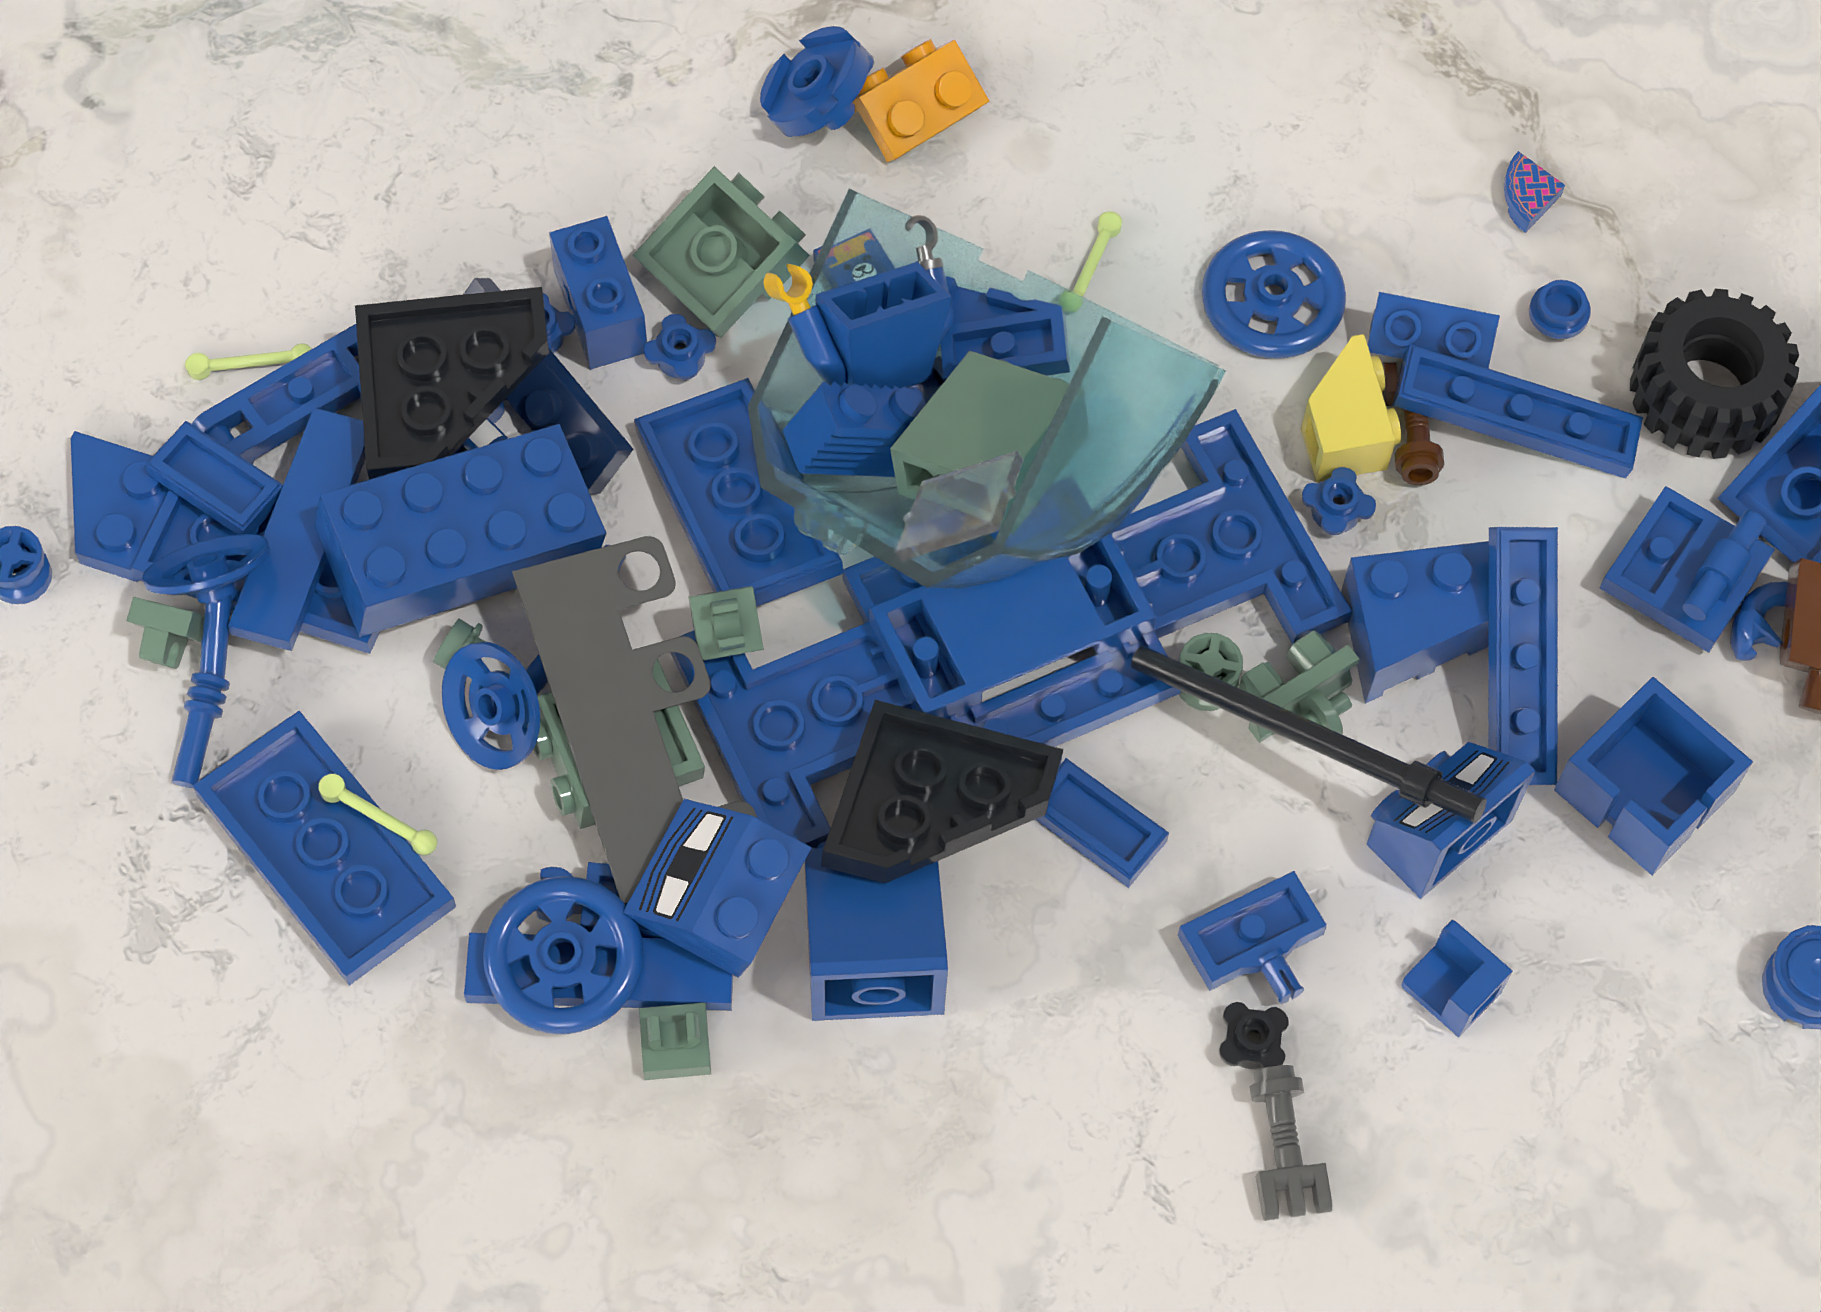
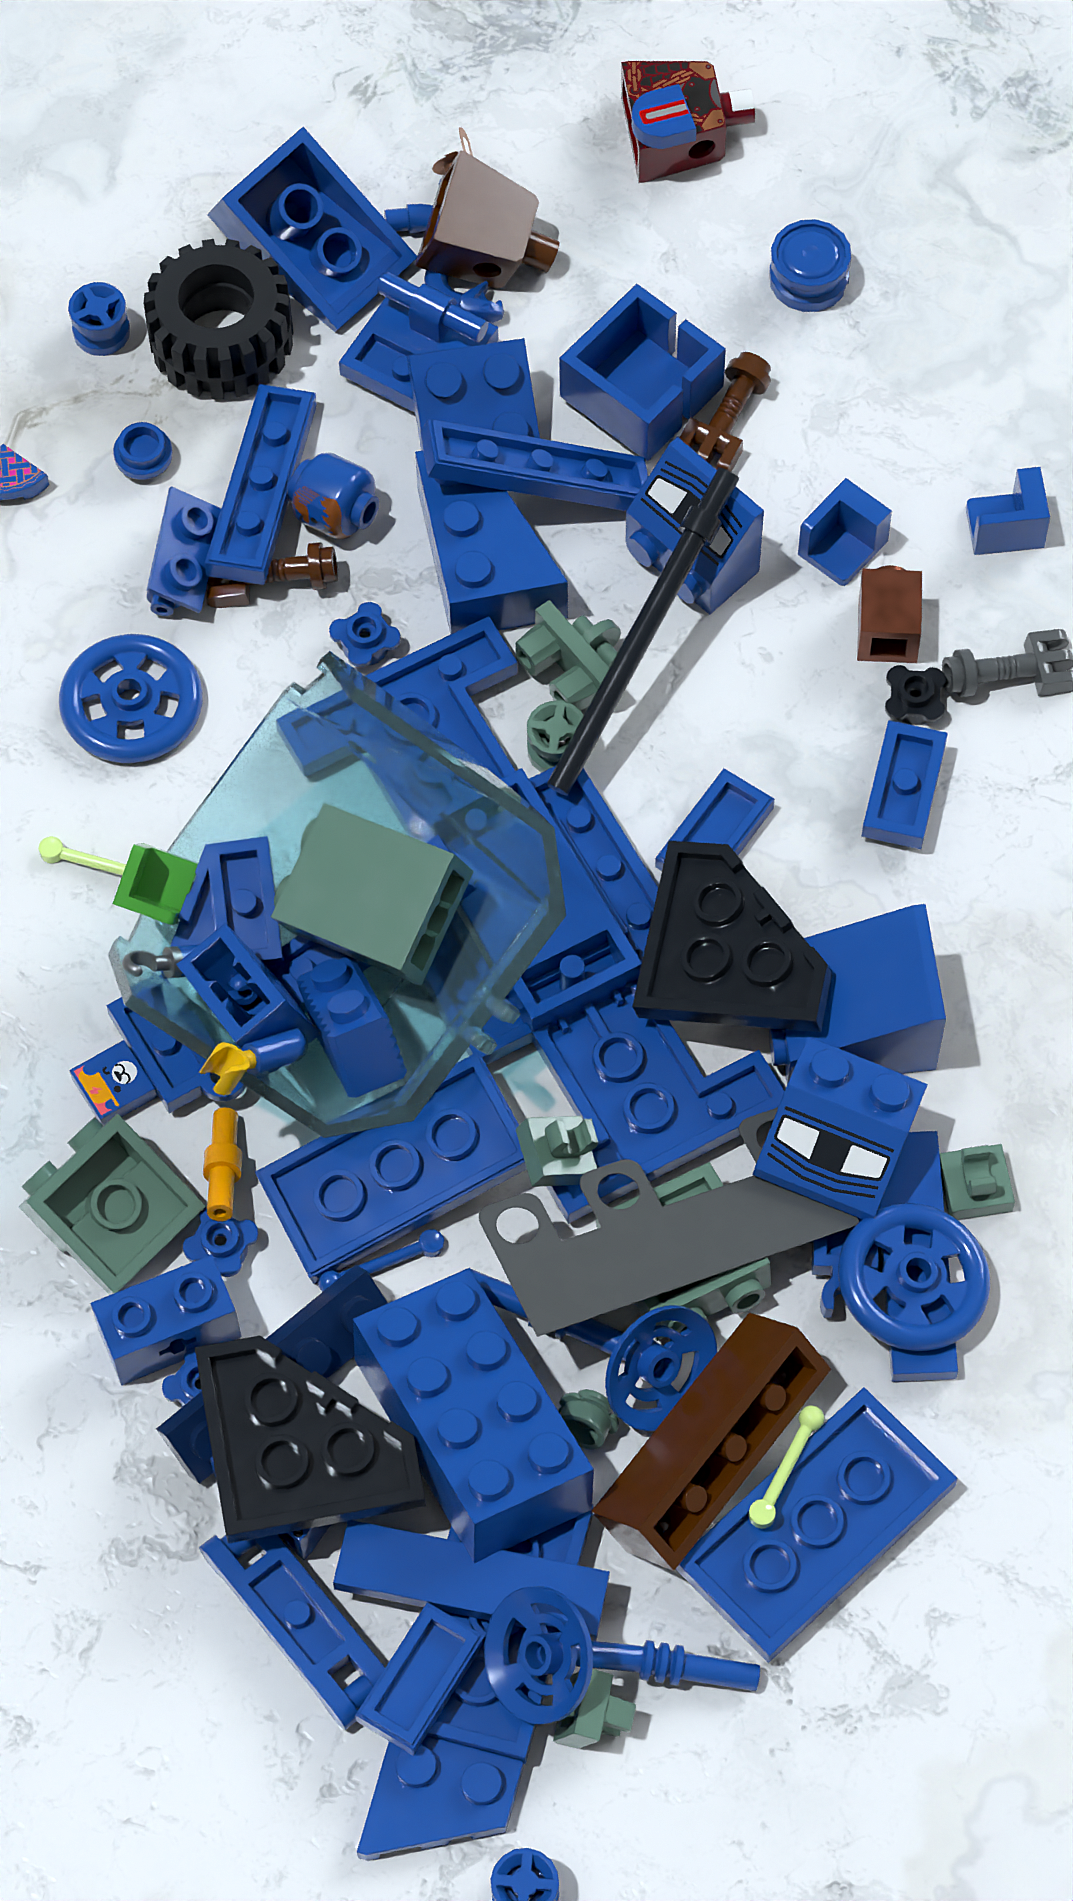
camera: 90 degrees left, 0 degrees up
(200, 366) = (258, 1737): yellowish green hinge -> none
(412, 747) = (711, 1440): none -> reddish brown brick
(663, 528) = (429, 1244): none -> blue hinge
(751, 345) = (222, 1164): none -> light orange bar
(959, 506) = (486, 881): clear piece -> none
(1025, 262) = (155, 883): none -> bright green panel
(1140, 1012) = (904, 784): none -> blue plate
(1255, 936) = (820, 693): blue plate -> none
(1348, 416) = (271, 624): light yellow slope -> none
(1351, 1014) = (889, 615): none -> copper brick
(1480, 1163) = (1011, 520): none -> blue panel
(1501, 471) = (333, 495): none -> blue head
(1615, 610) = (475, 387): none -> blue plate
(1662, 897) = (747, 376): none -> reddish brown hinge
(1719, 257) = (104, 304): none -> blue wheel

